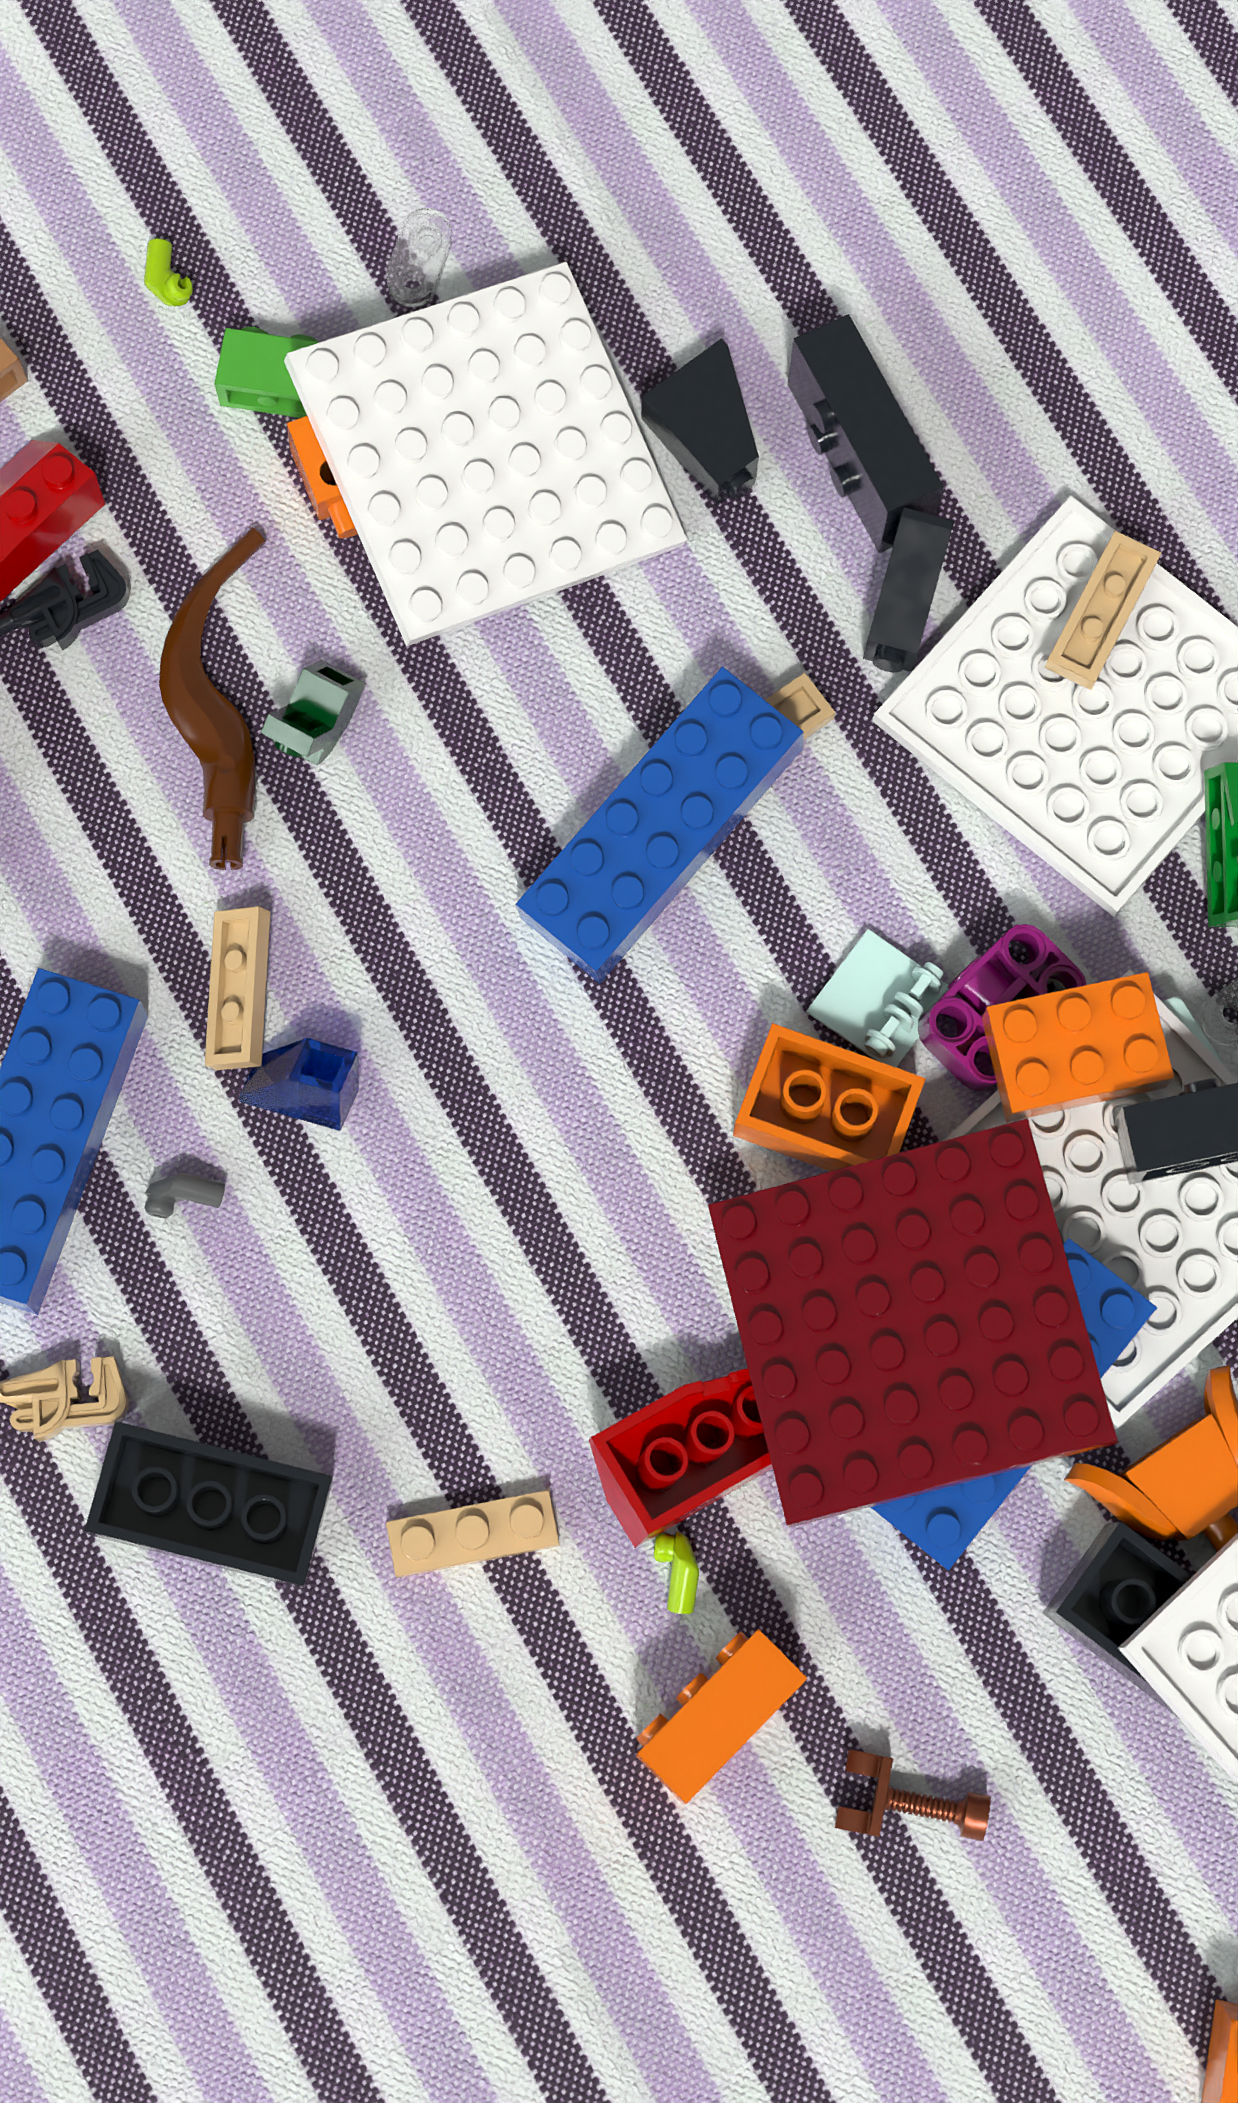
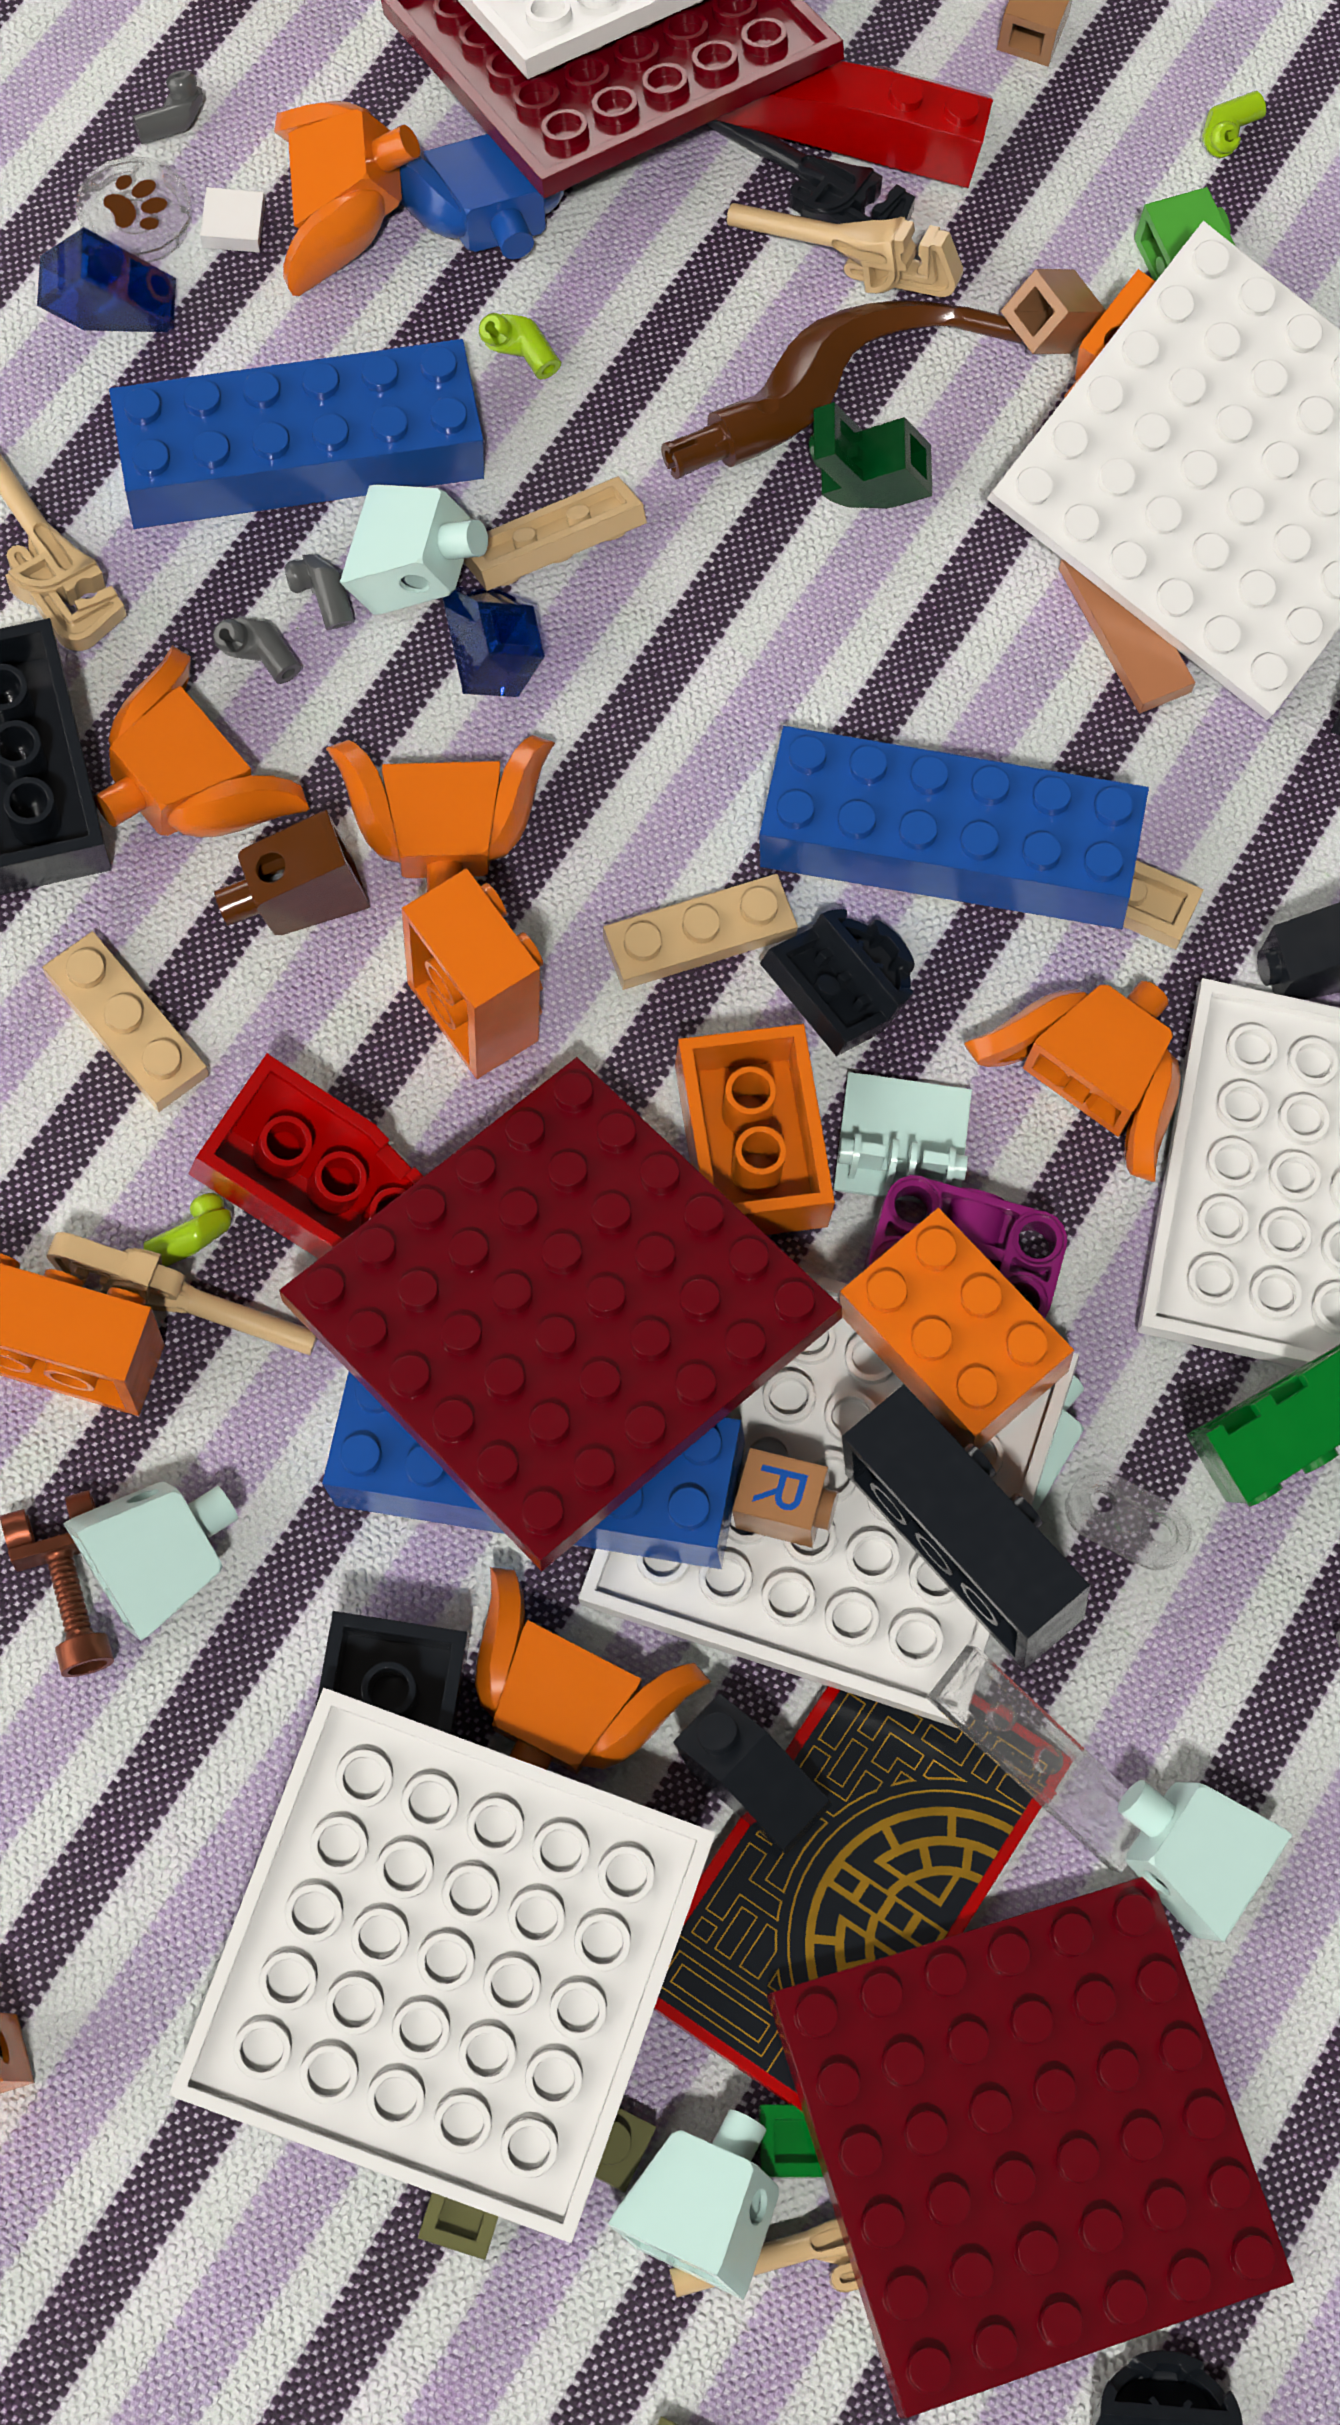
camera: 55 degrees right, 5 degrees down
(44, 920) = (520, 338): none -> lime arm
(133, 606) = (876, 249): none -> tan piece
(195, 1105) = (409, 547): none -> light aqua torso
(201, 1266) = (257, 642): none -> dark grey arm
(264, 504) = (1053, 311): none -> medium nougat brick
(284, 1382) = (182, 768): none -> orange torso
(438, 1202) = (445, 813): none -> orange torso
(438, 1319) = (295, 879): none -> reddish brown torso
(586, 607) = (1142, 658): none -> nougat tile
(604, 1245) = (473, 971): none -> orange brick
(632, 1058) = (699, 931): none -> tan plate
(714, 1616) = (167, 1291): none -> tan piece
(733, 971) = (843, 977): none -> black slope
(898, 820) = (1101, 1057): none -> orange torso
(927, 1724) = (152, 1550): none -> light aqua torso
(1133, 1238) = (784, 1498): none -> medium nougat brick

